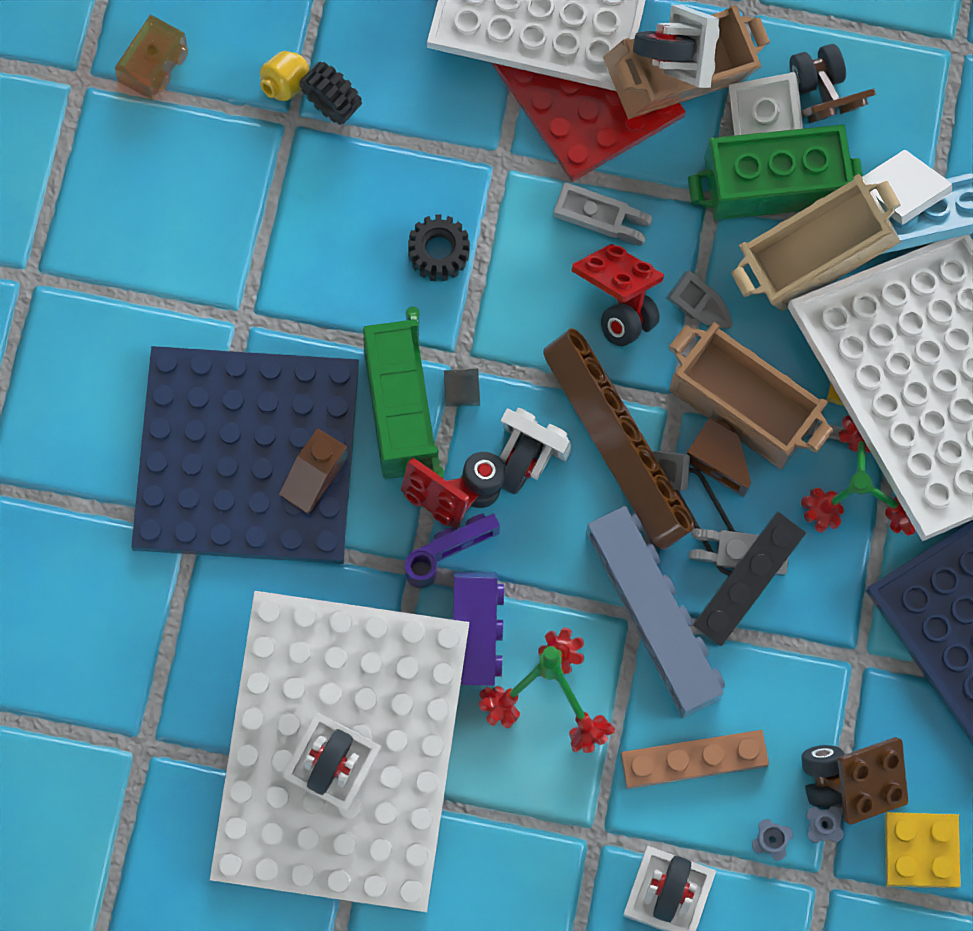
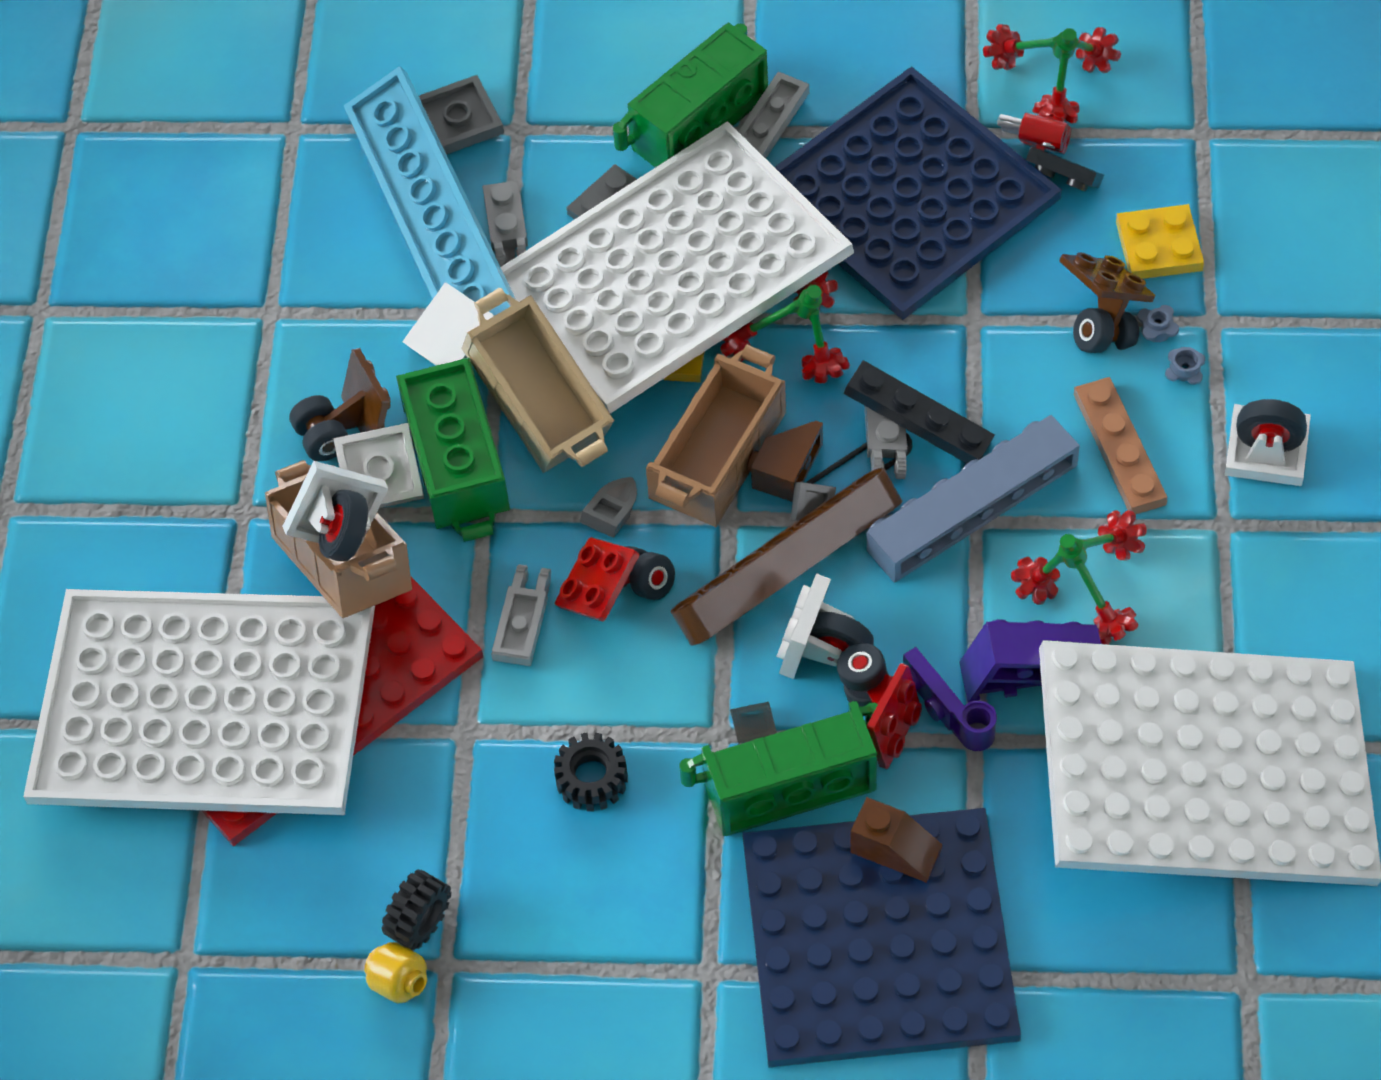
camera: 90 degrees left, 15 degrees down
(331, 761) = (1231, 751): white plate -> none

